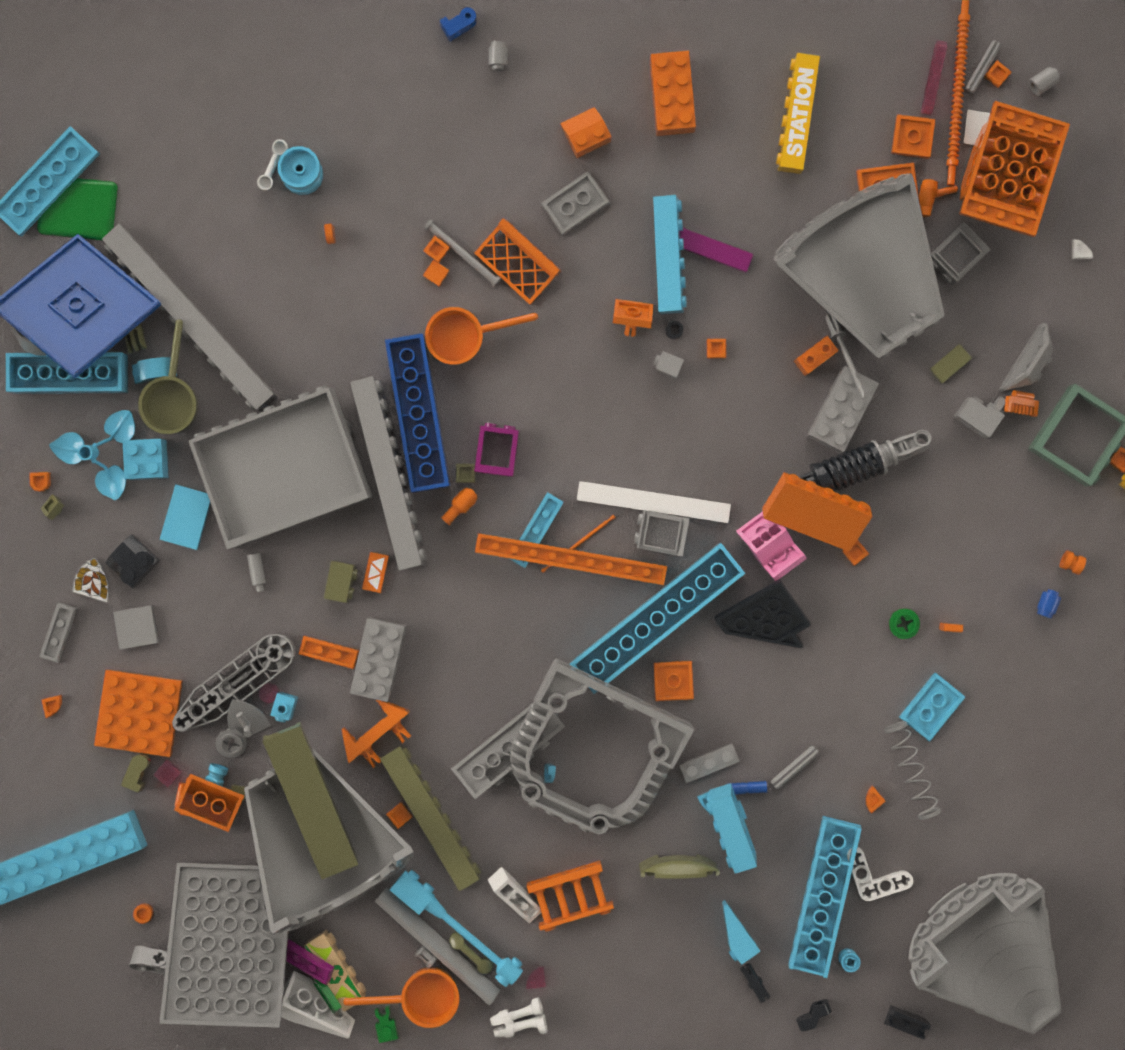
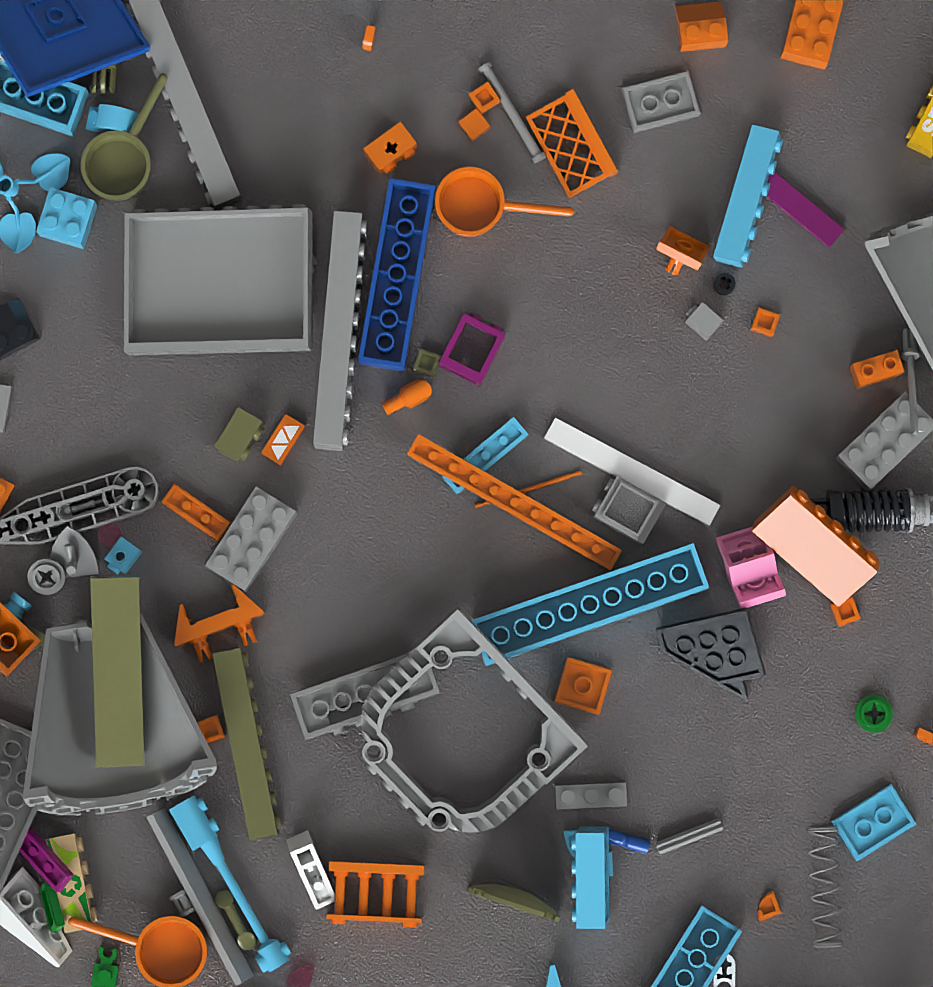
camera: 20 degrees right, 5 degrees down
(186, 517) = (88, 300): medium azure tile -> none
(256, 571) = (147, 390): light grey cylinder -> none
(377, 305) = (395, 137): none -> orange brick
(549, 773) = (401, 741): medium azure tile -> none

